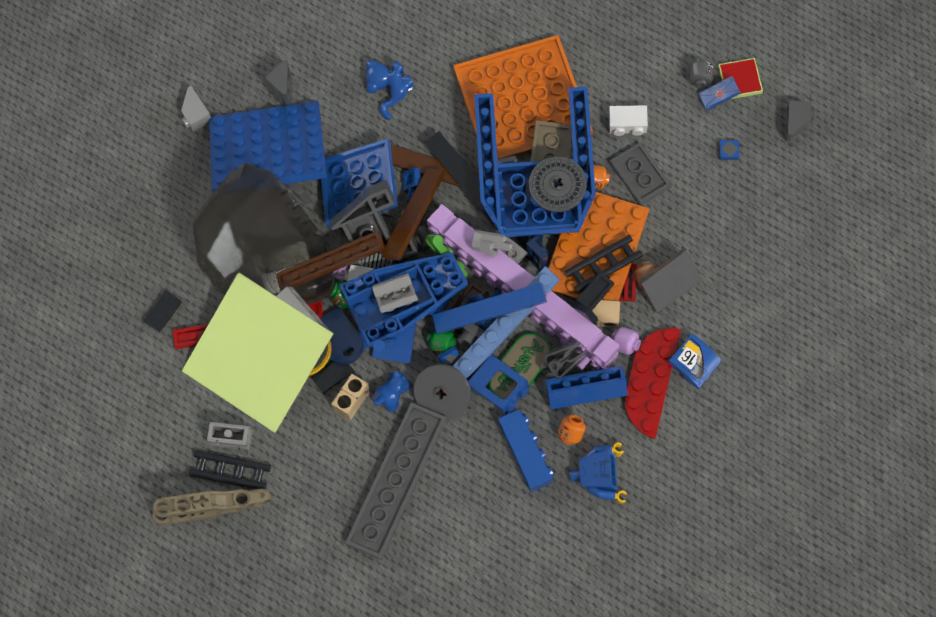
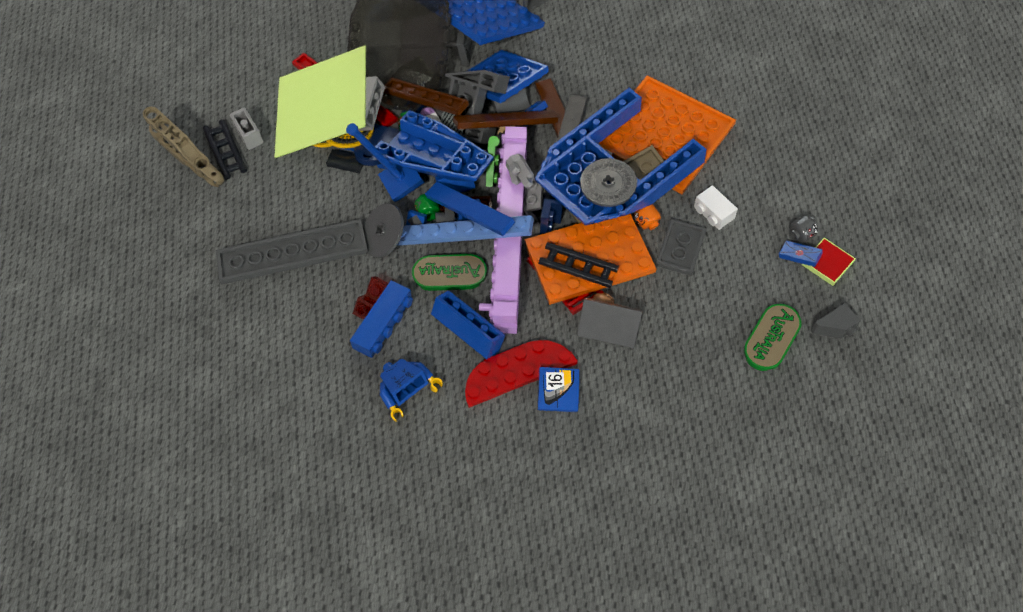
camera: 50 degrees right, 10 degrees down
(162, 311) = (313, 40): black tile -> none
(355, 403) = (340, 185): tan piece -> none
(379, 77) = (602, 51): blue animal -> none
(389, 392) = (356, 201): blue animal -> none
(394, 293) = (429, 143): light grey bracket -> none
(485, 374) = (417, 250): blue window -> none
(497, 446) = (366, 302): none -> clear red slope
(562, 360) = (473, 289): dark grey hinge -> none
(571, 429) = (424, 338): orange head -> none
(582, 309) = (523, 269): black tile -> none
(595, 291) = (548, 272): black tile -> none
(607, 312) = (540, 294): tan piece -> none
(627, 339) = (531, 325): lavender head -> none
(729, 149) = (761, 294): blue tile -> none
(770, 173) = (772, 337): none -> dark tan tile

